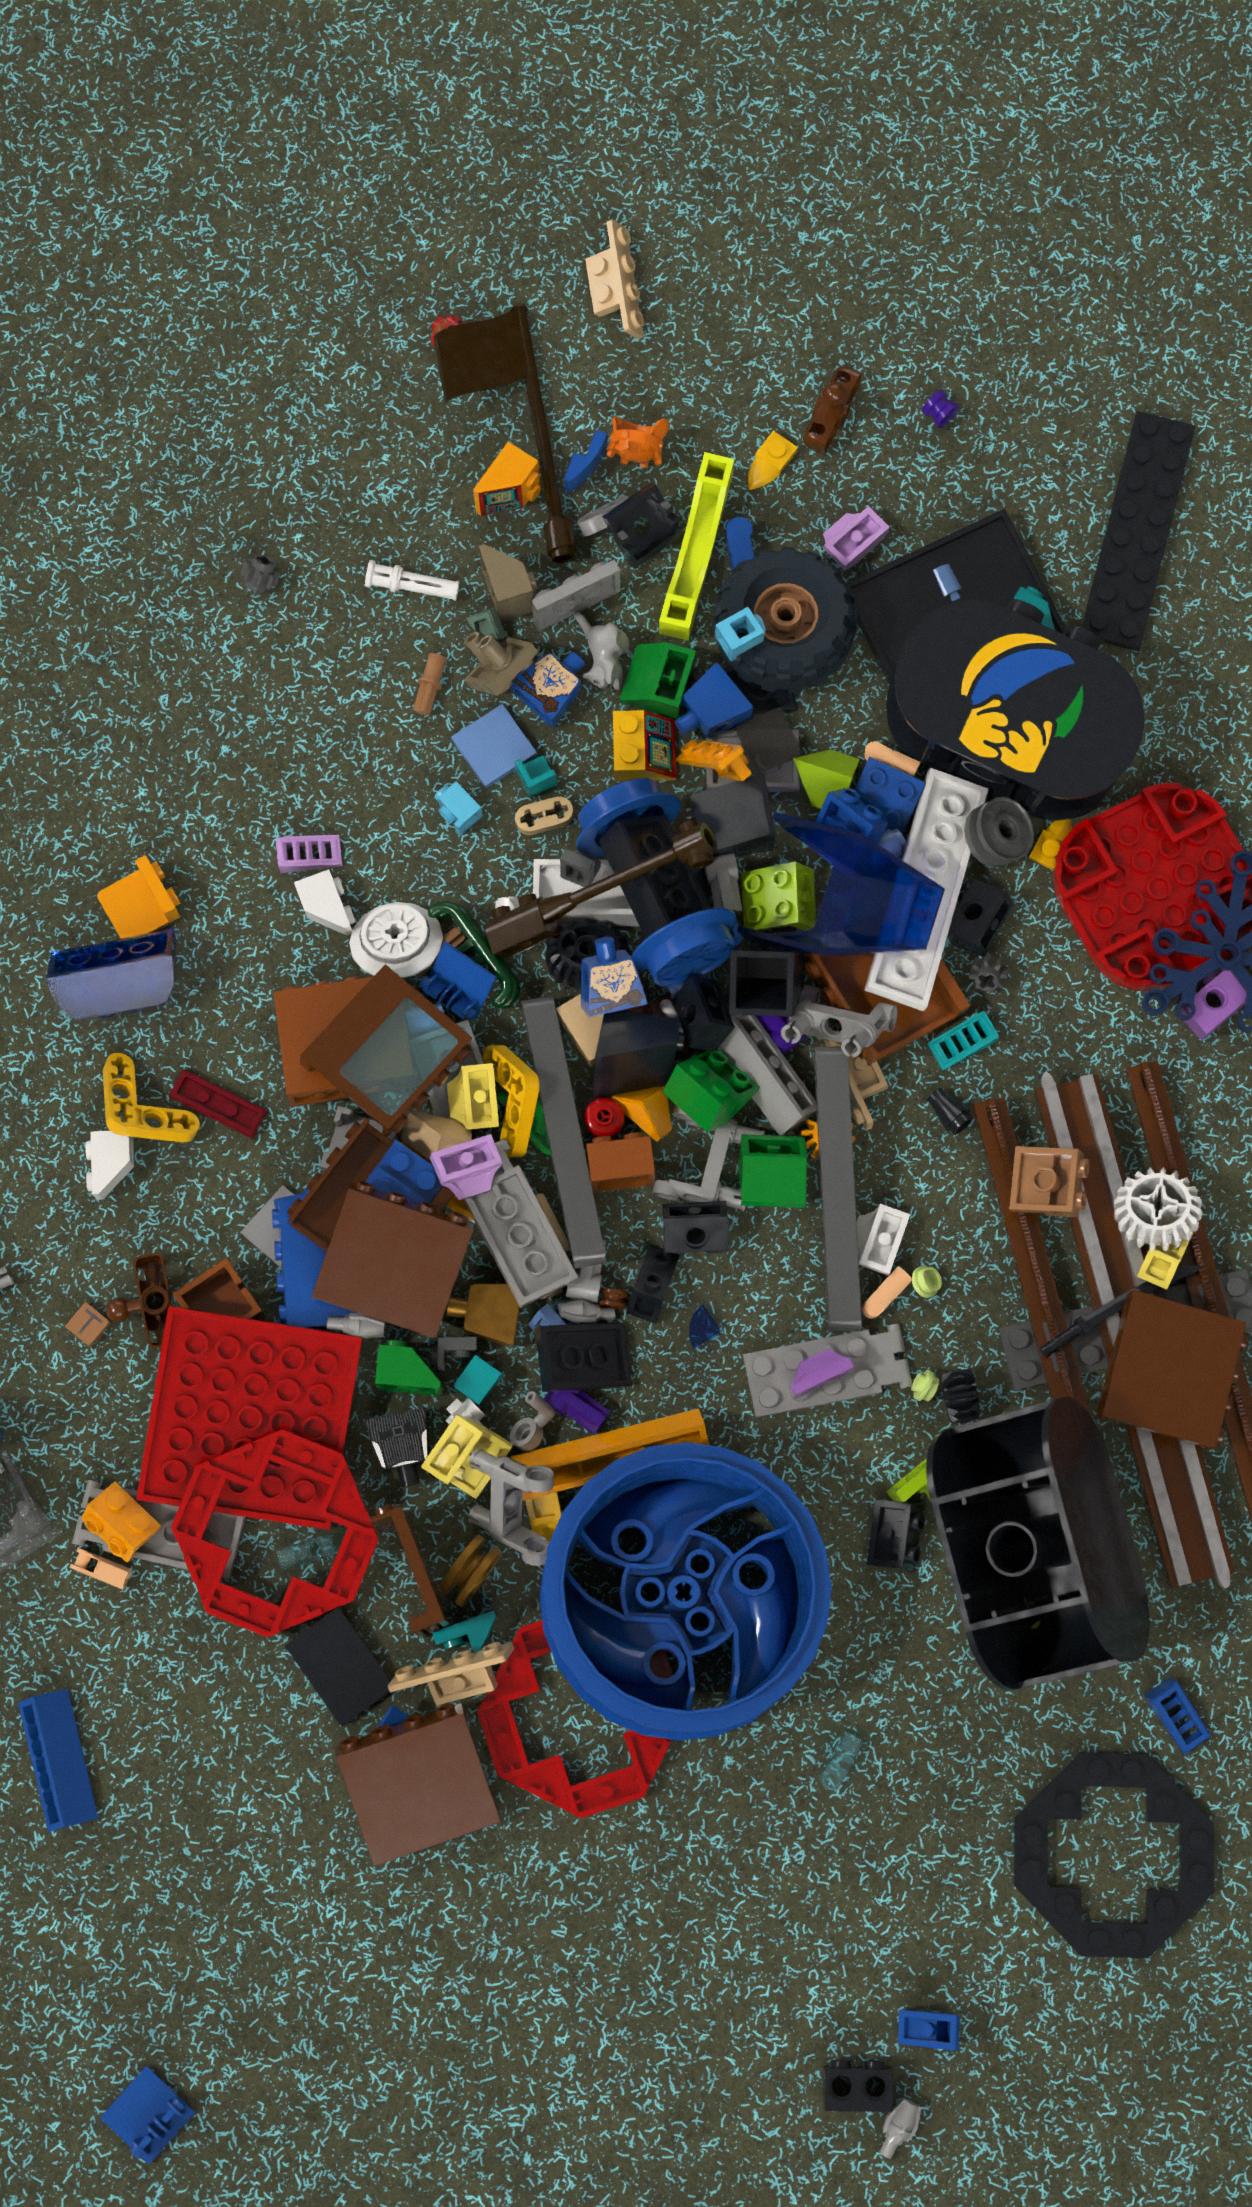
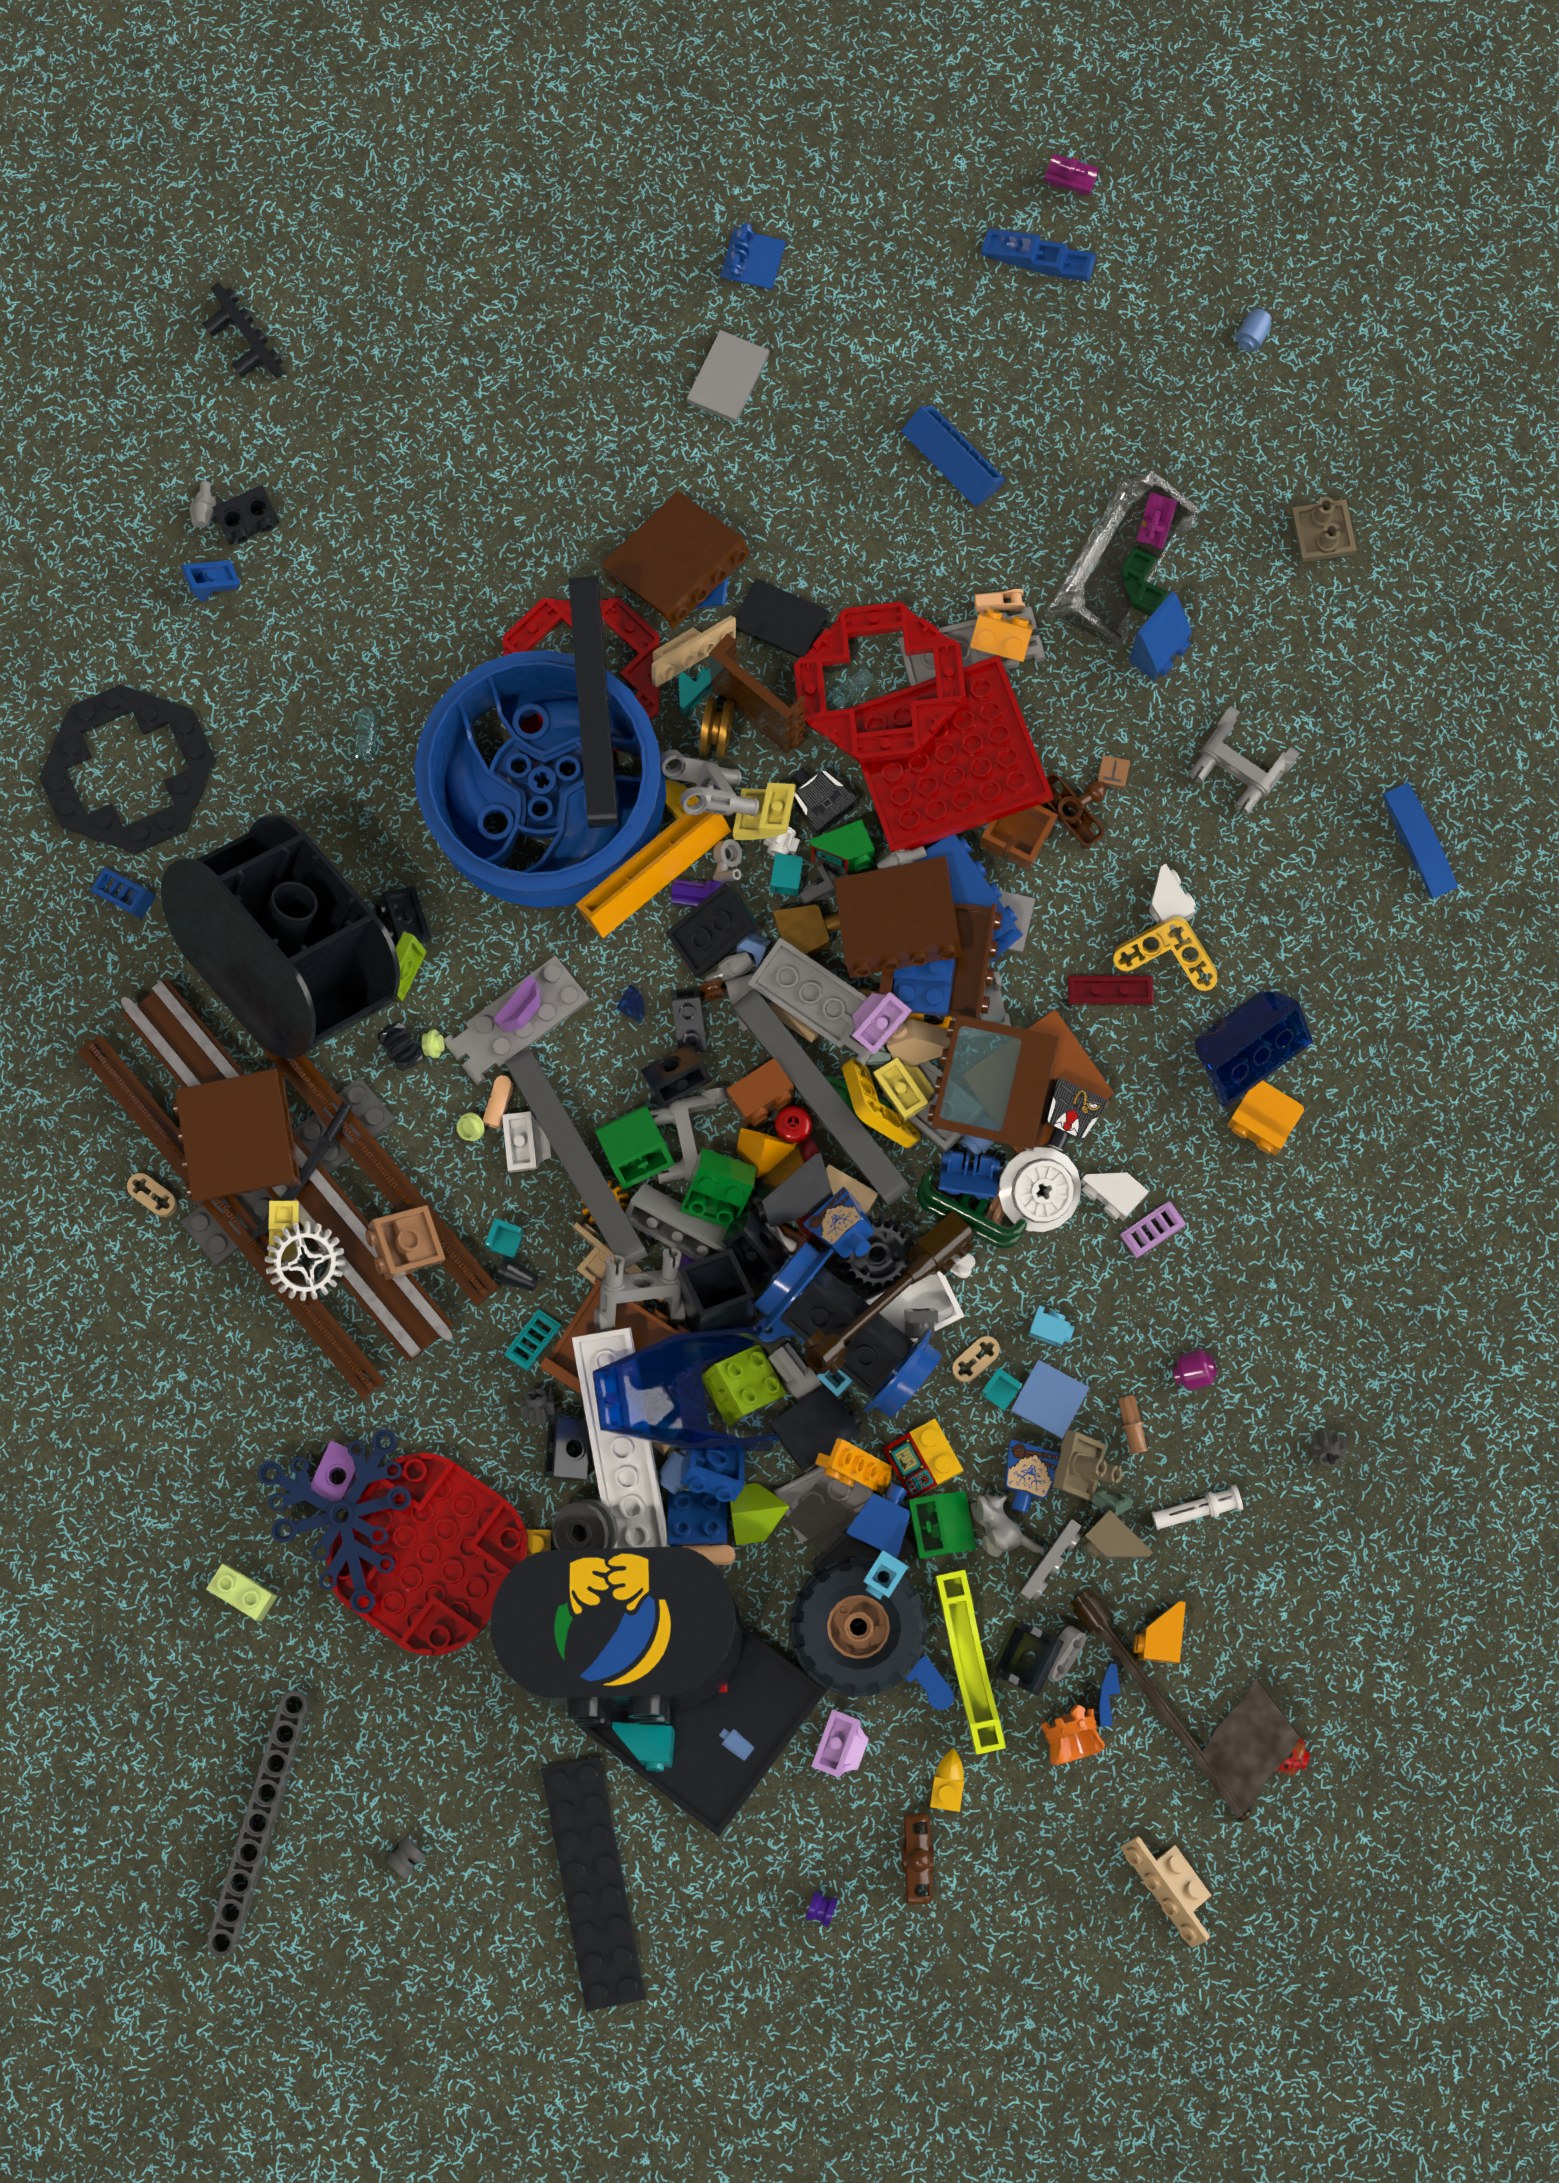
camera: 155 degrees right, 0 degrees up
(248, 1983) = (728, 376): none -> light grey tile
(326, 986) = (1070, 1112): none -> torso
(343, 702) = (1195, 1370): none -> magenta head
(593, 1621) = (593, 701): none -> black beam
(944, 1152) = (504, 1238): none -> teal panel

